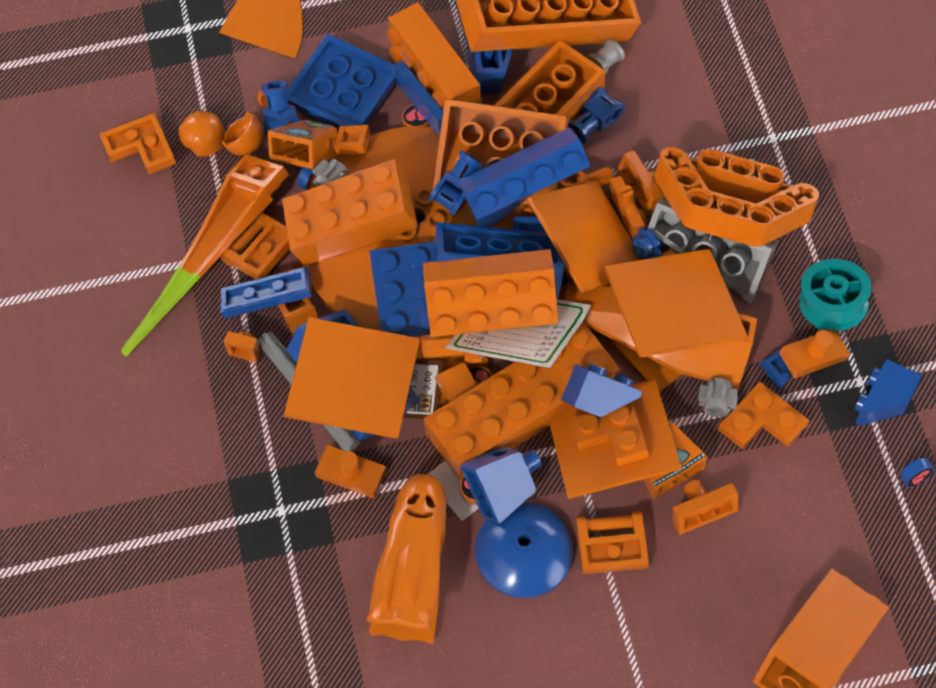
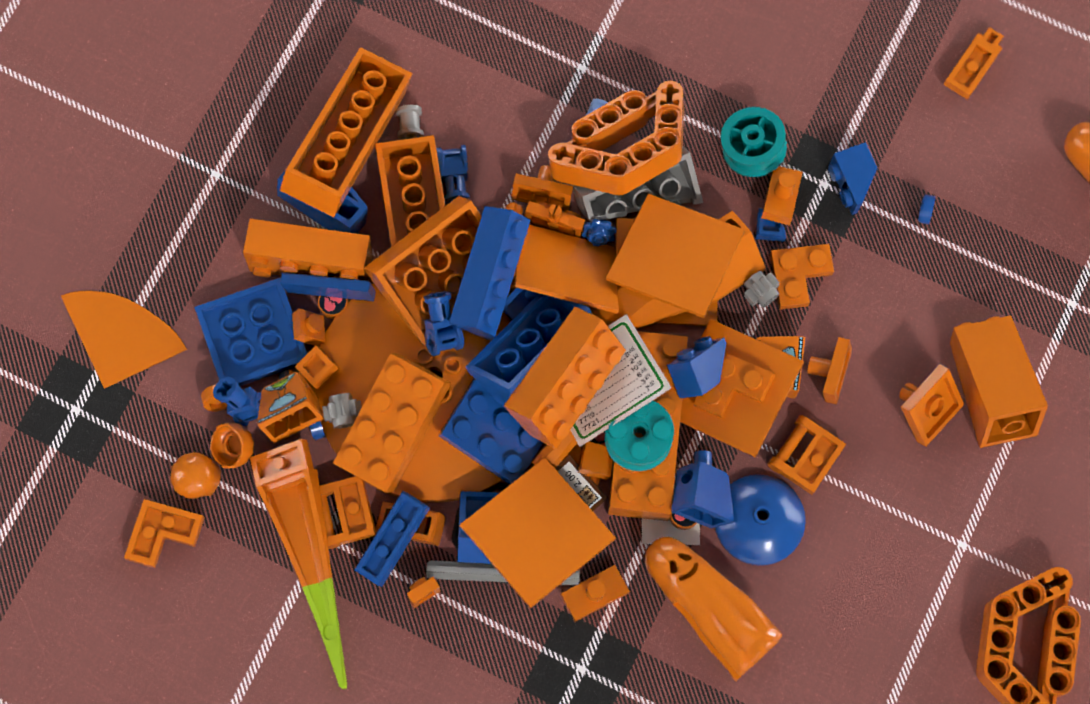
camera: 60 degrees left, 10 degrees up
(380, 114) = (308, 327): none -> orange plate
(497, 389) = (642, 452): none -> teal wheel
(745, 604) = (931, 404): none -> orange tile

